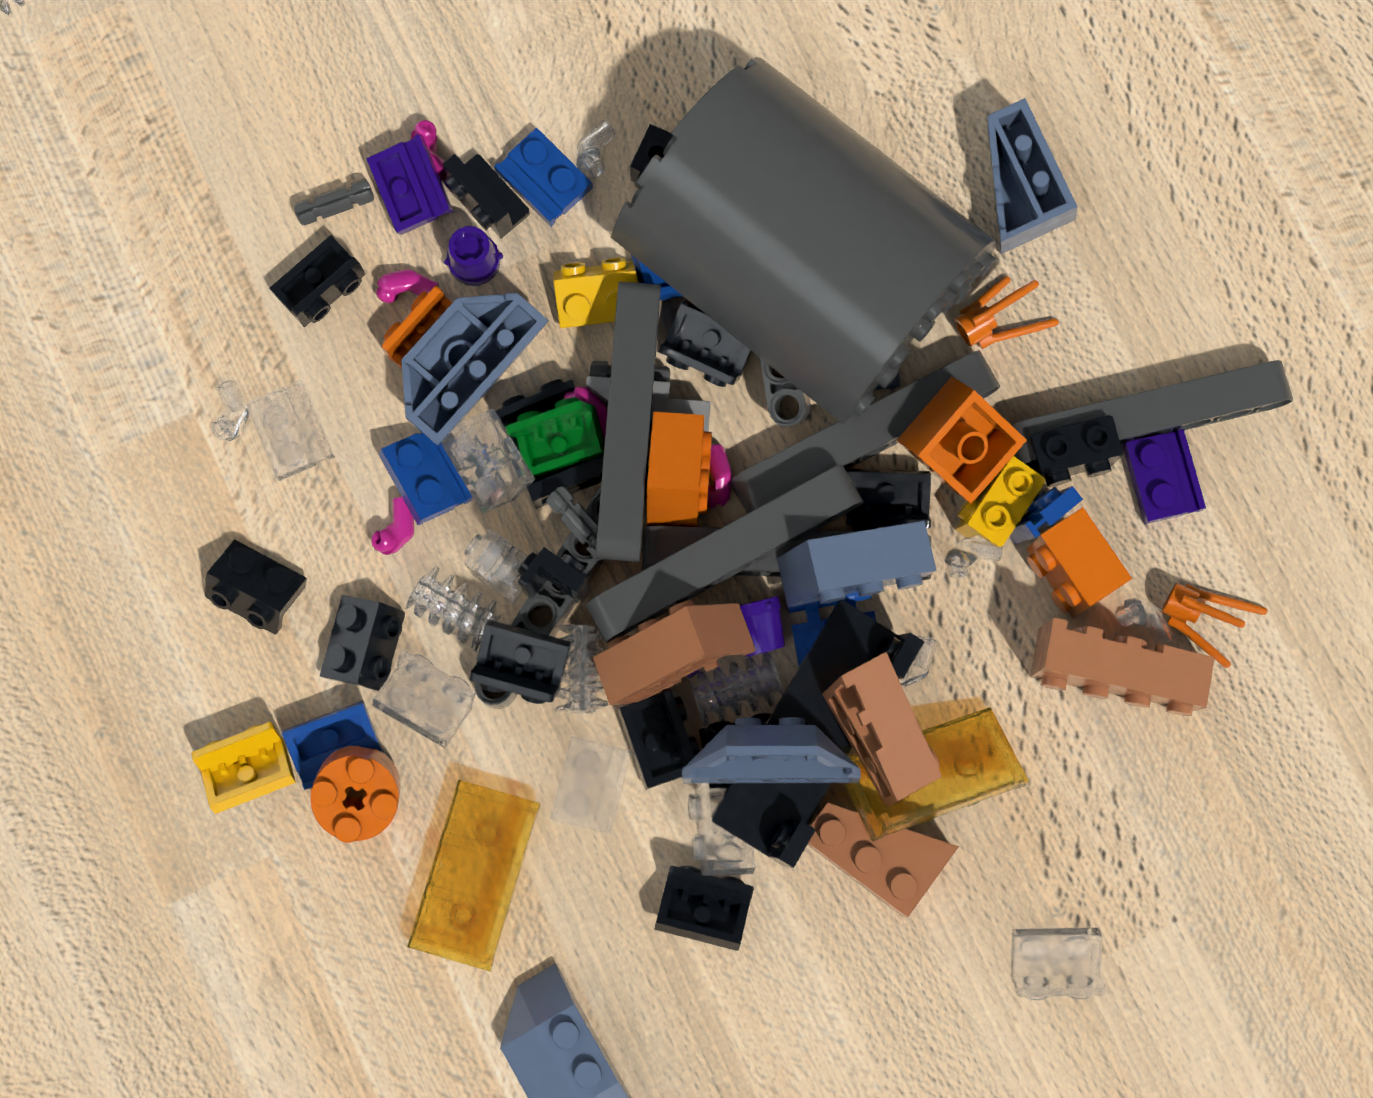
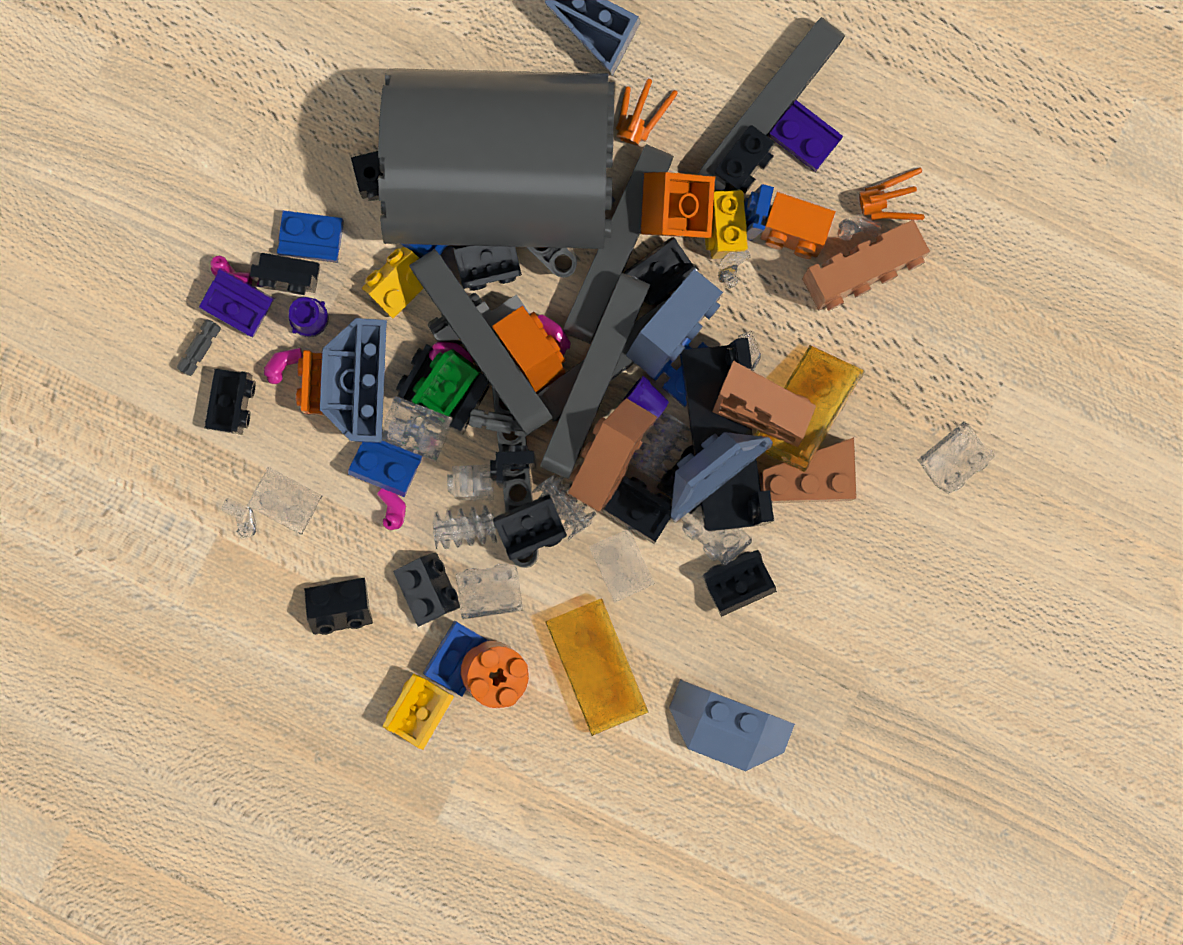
camera: 40 degrees left, 5 degrees up
(589, 150) = (325, 200): clear arm -> none

